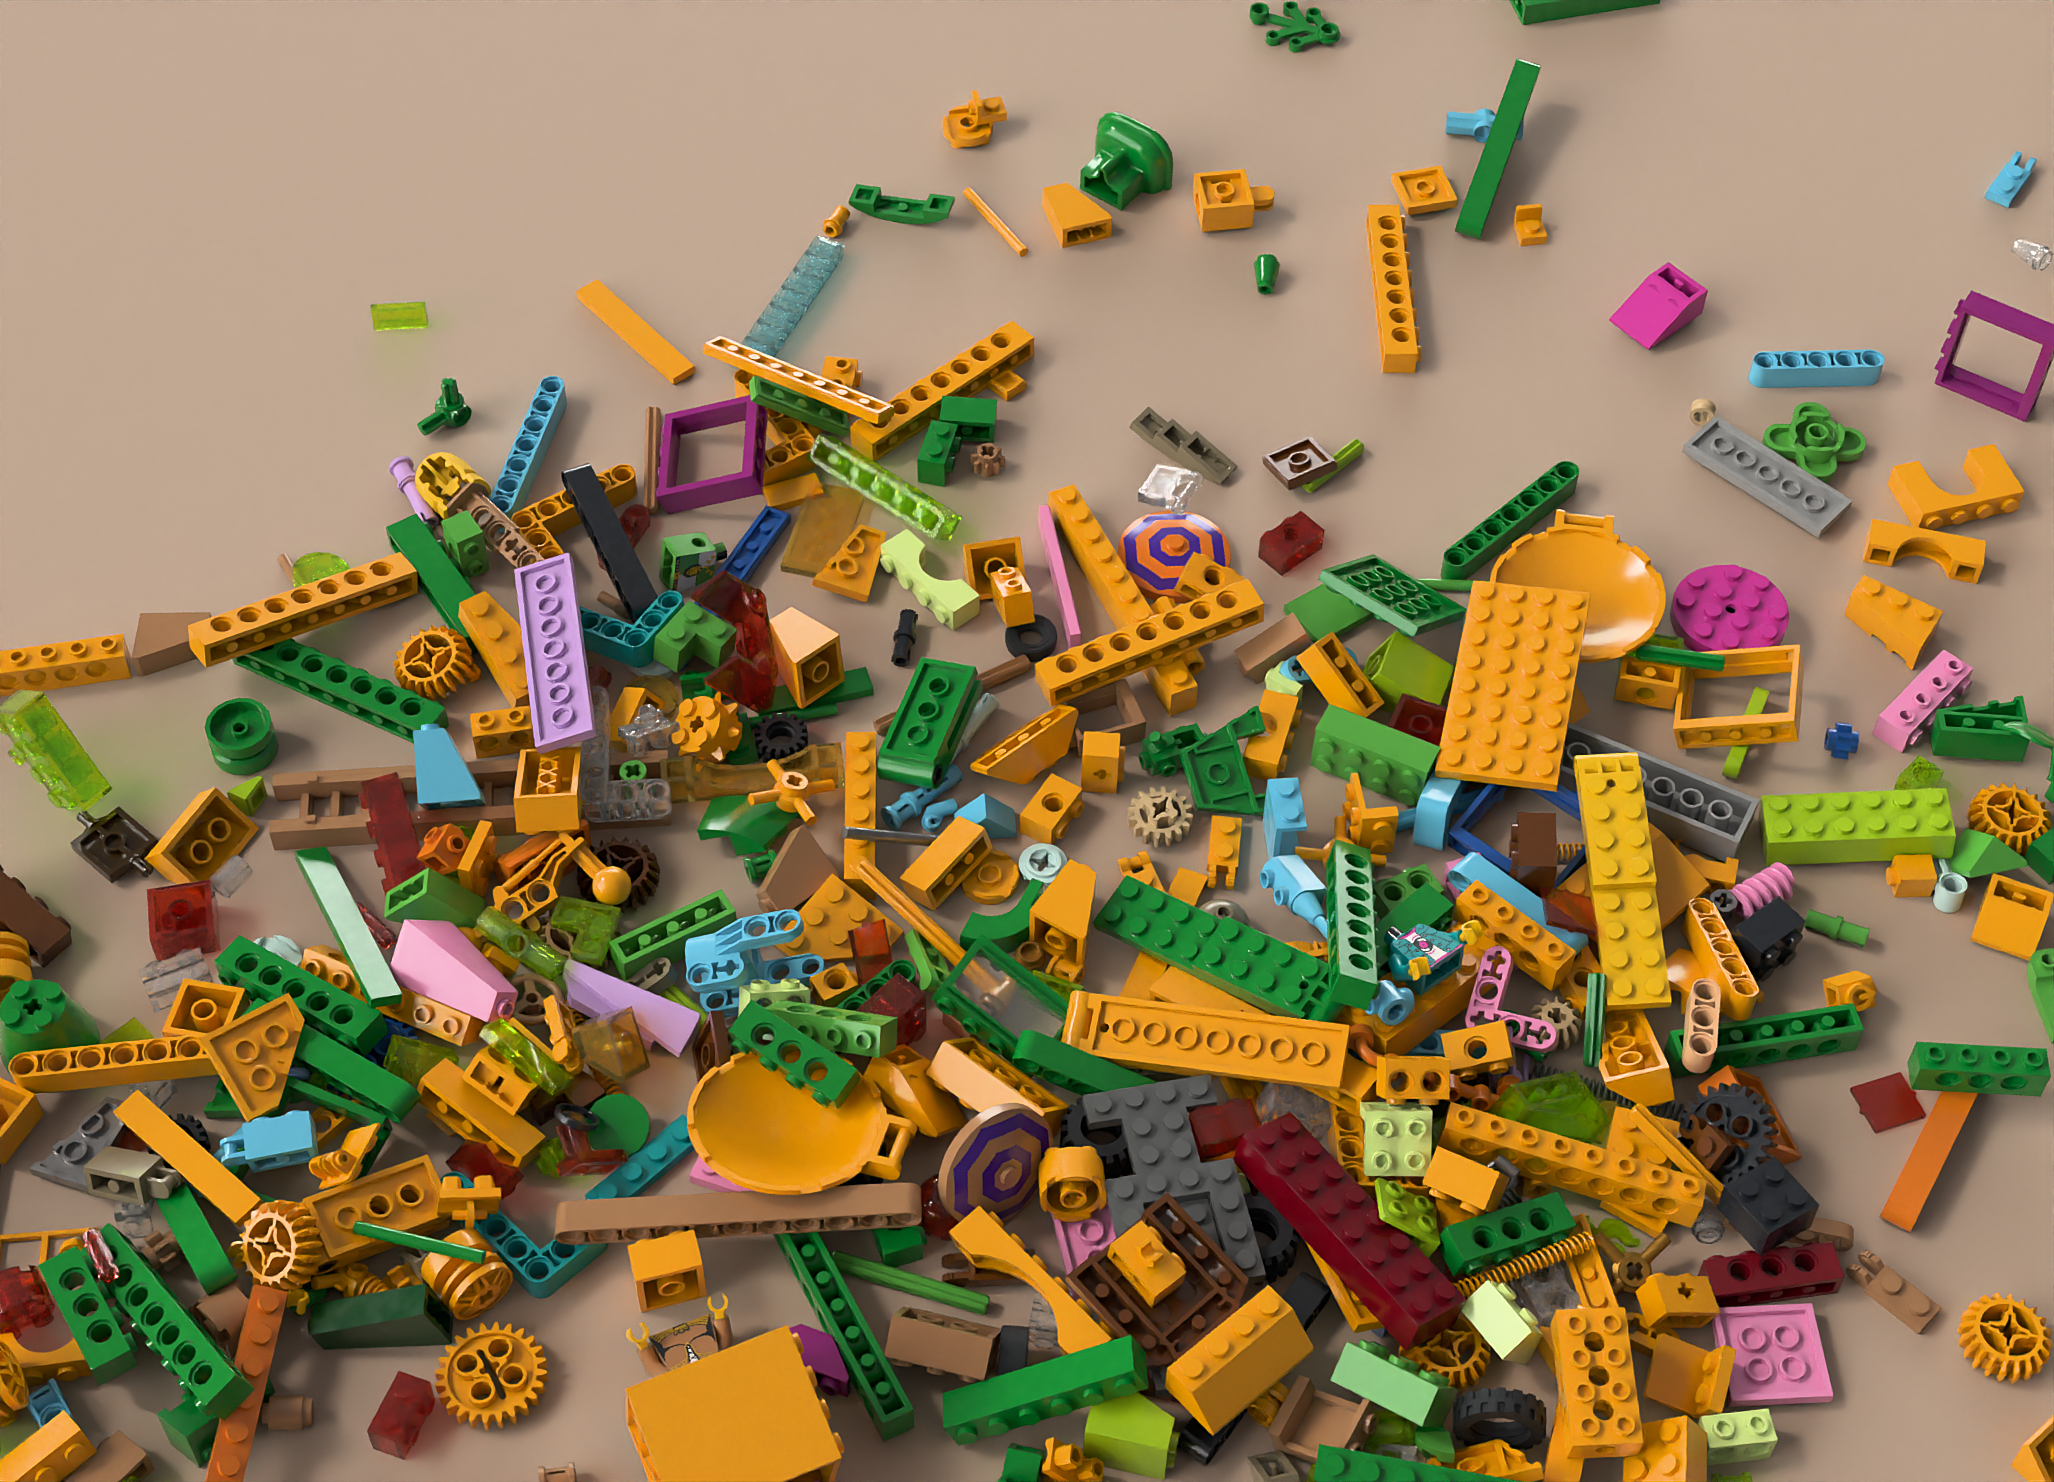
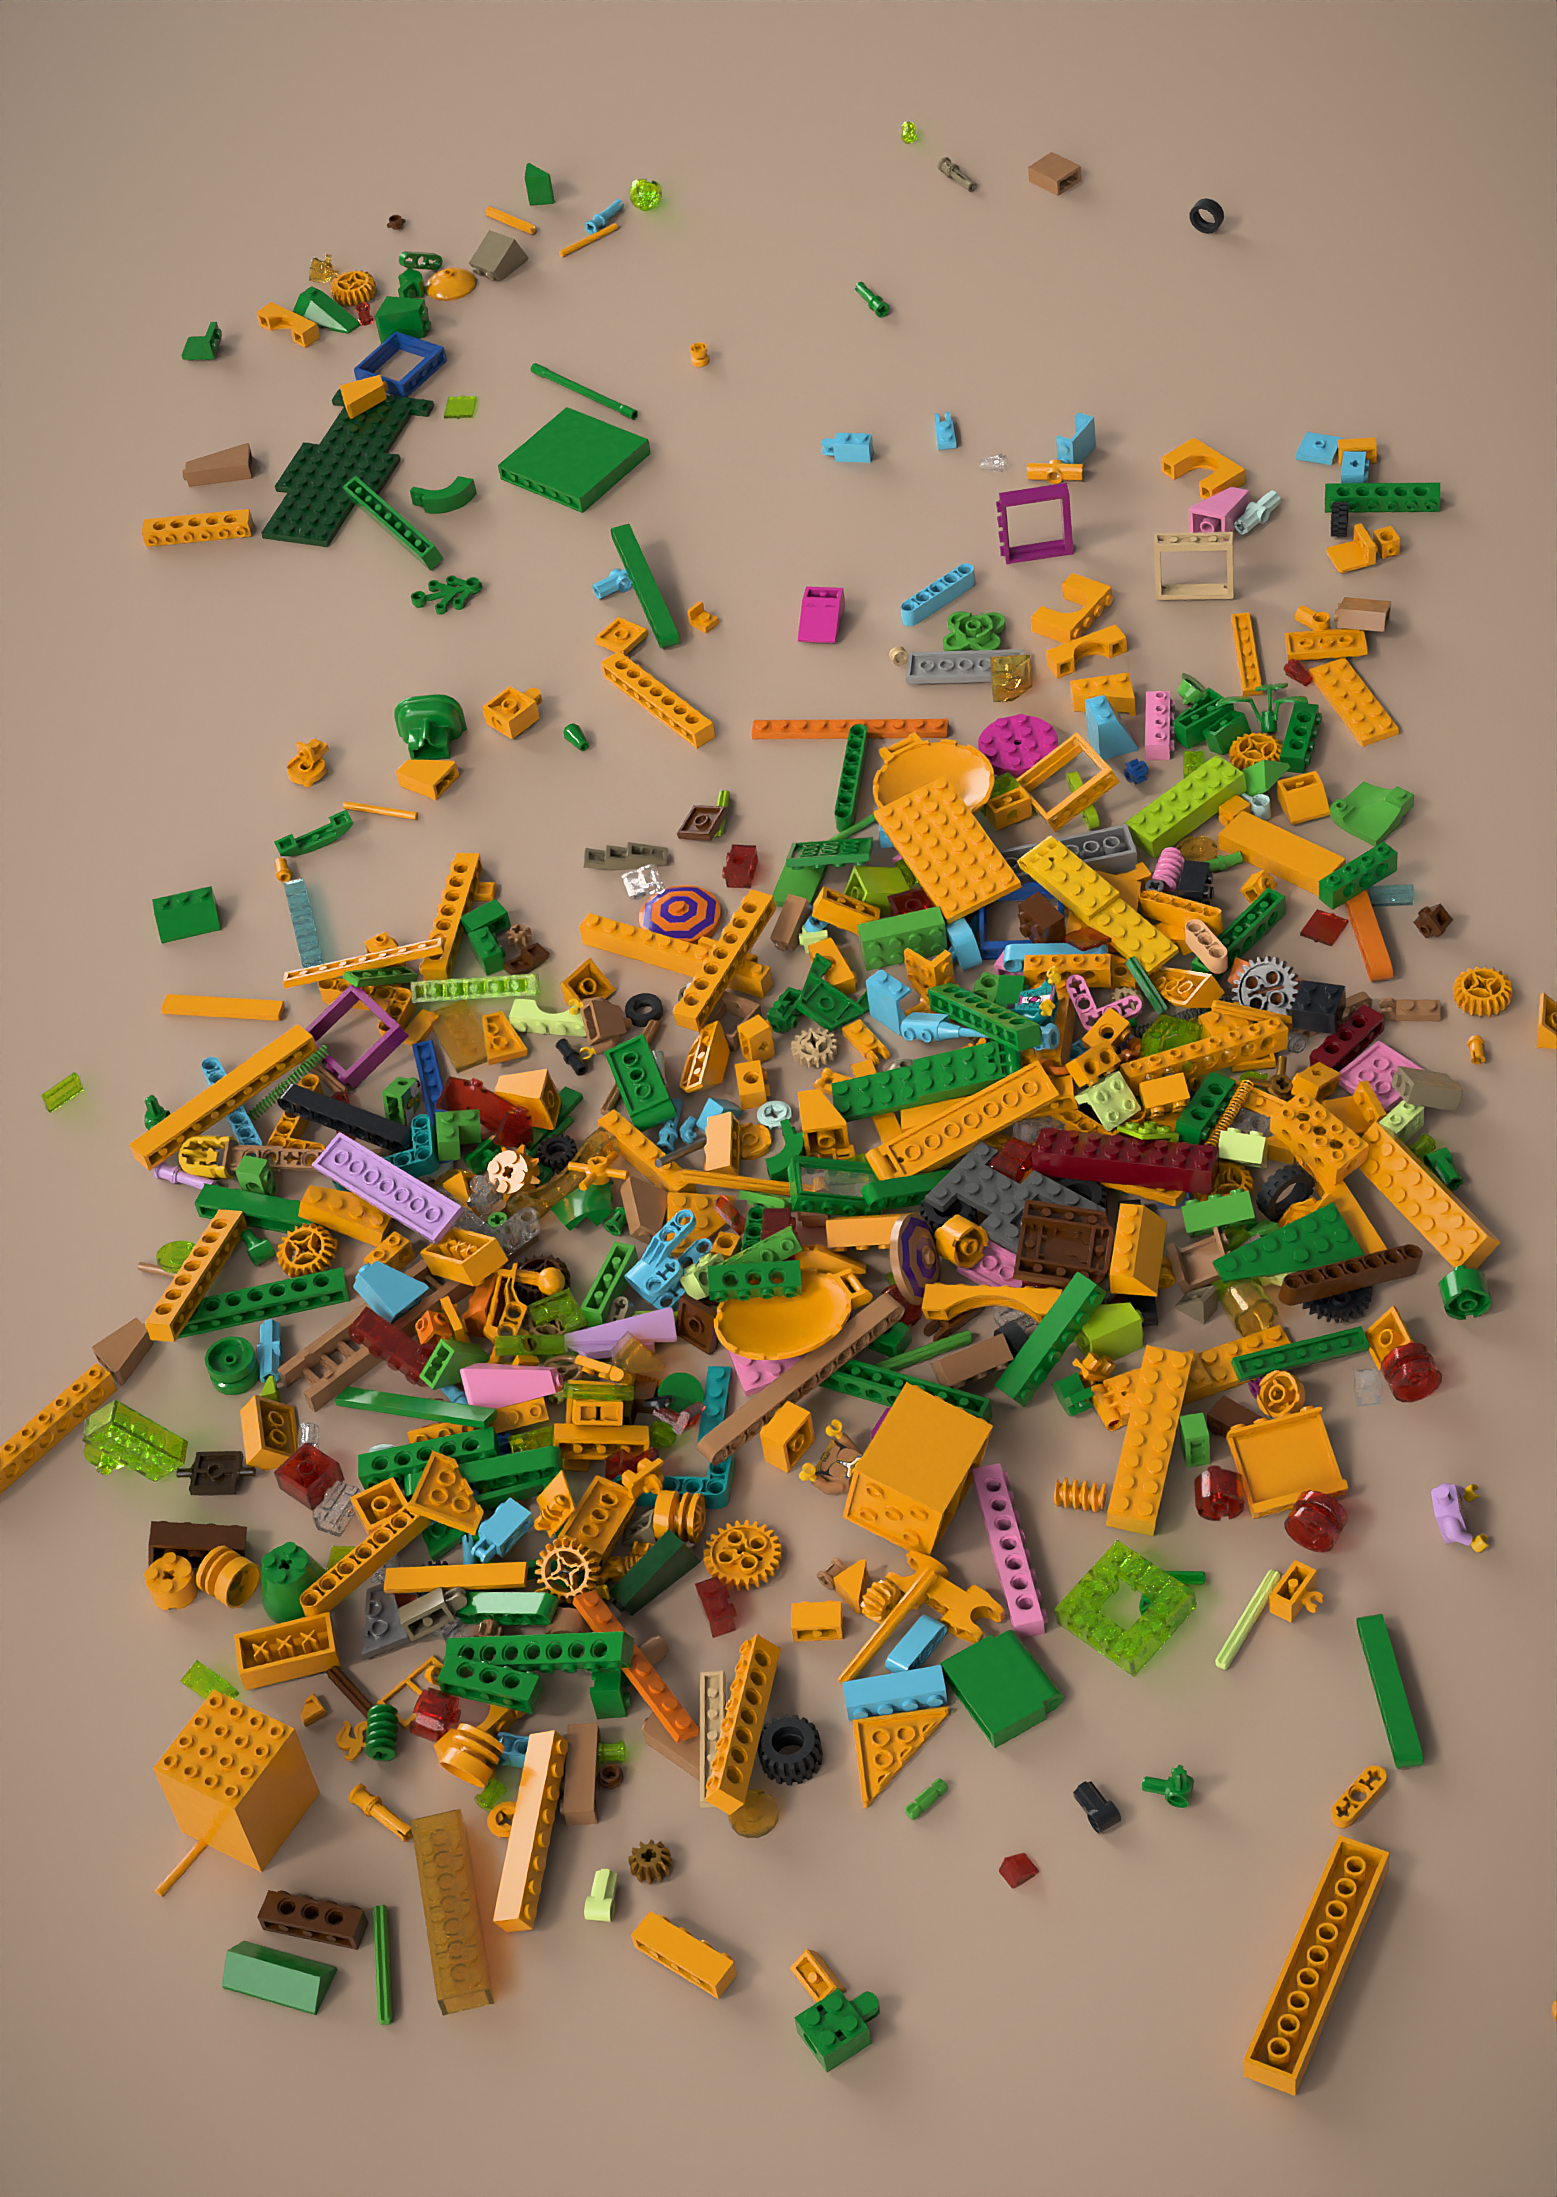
camera: 30 degrees left, 5 degrees down
(100, 1255) = (475, 1654): clear red axle -> none
(296, 746) = (270, 1350): none -> medium azure piece
(400, 622) = (257, 1249): none -> green pin
(419, 1242) = (645, 1511): green bar -> none
(521, 430) = (223, 1097): none -> light orange brick
(603, 460) = (289, 1081): none -> bright green piece
(698, 206) = (186, 914): none -> green slope
(964, 623) = (602, 1024): none -> medium nougat torso
(976, 494) = (529, 959): none -> reddish brown slope
(1012, 596) = (616, 991): light orange brick -> none
(1059, 577) = (628, 969): bright pink tile -> none
(1147, 1263) = (1048, 1239): light orange brick -> none
(1198, 567) = (716, 913): light orange brick -> none
(1551, 451) = (840, 728): none -> orange plate
(1680, 657) = (1018, 781): green axle -> none
(1709, 1143) = (1262, 999): reddish brown plate -> none
(1799, 523) = (1010, 677): none -> clear yellow slope
(1803, 1417) = (1426, 1088): none -> dark tan brick
(1823, 891) = (1198, 849): none -> clear yellow tile
(1856, 666) = (1107, 729): none -> medium azure slope
(1881, 131) = (849, 447): none -> medium azure brick
(1920, 965) = (1279, 851): none -> light orange brick
(1929, 1405) = (1476, 1046): none -> light orange pin
(1995, 764) = (1225, 731): none -> green brick
(2005, 681) = (1190, 689): none -> bright green piece
(2009, 1121) = (1391, 895): none -> clear light blue panel
(2025, 1196) = (1433, 921): none -> reddish brown brick

